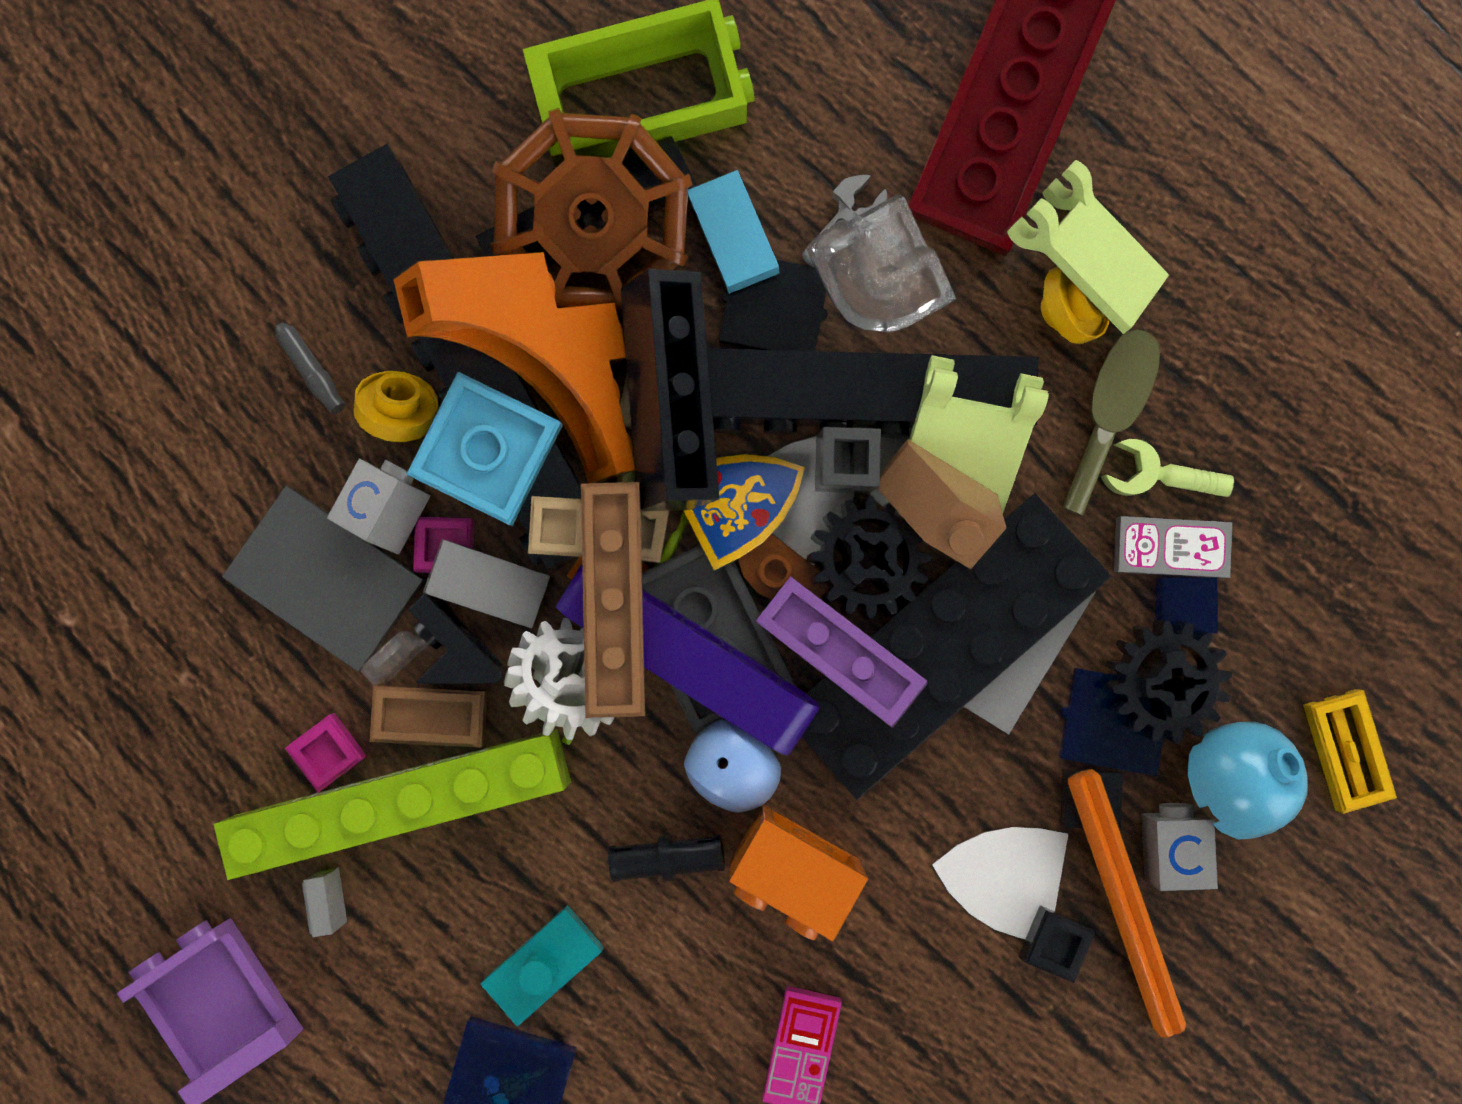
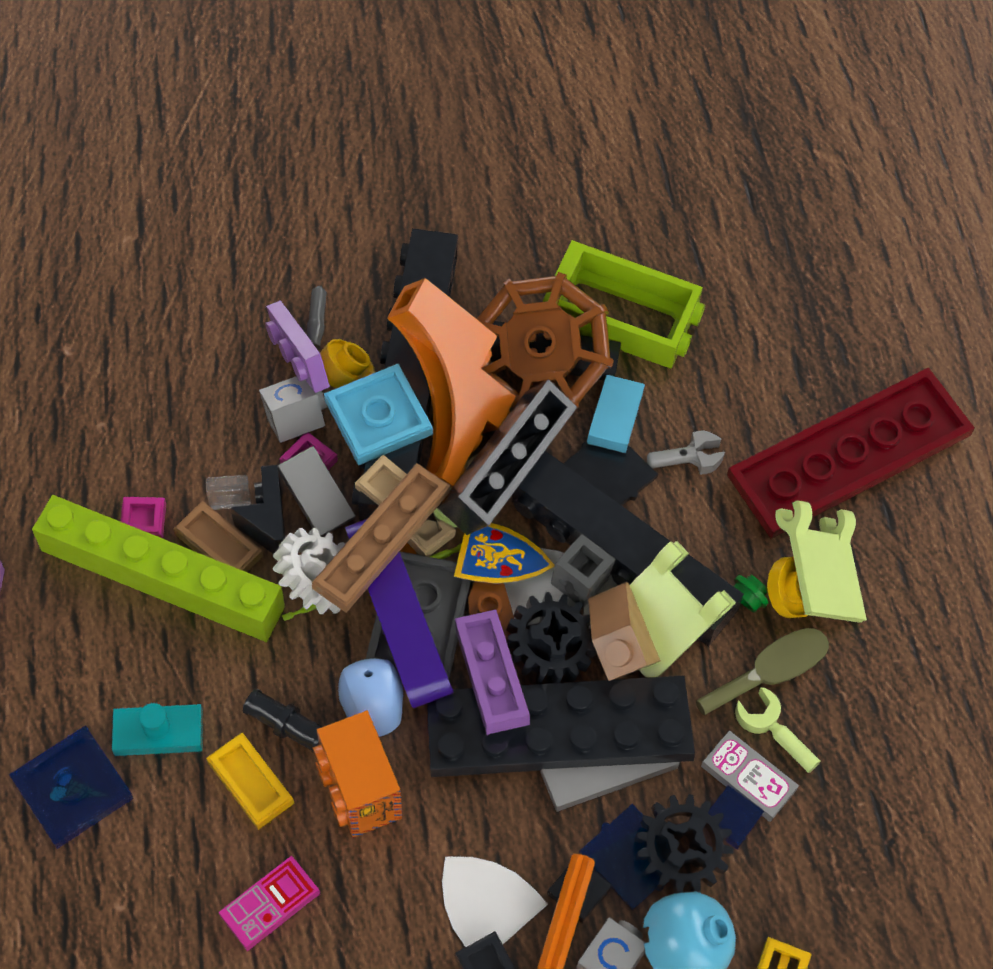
camera: 30 degrees right, 25 degrees down
(323, 579) = (226, 425): dark grey tile -> none
(324, 438) = (296, 347): none -> medium lavender plate
(324, 902) = (68, 592): light grey tile -> none
(679, 943) = (250, 781): none -> yellow tile
(880, 269) = (685, 484): clear brick -> none
(1033, 341) = (753, 591): none -> green plate

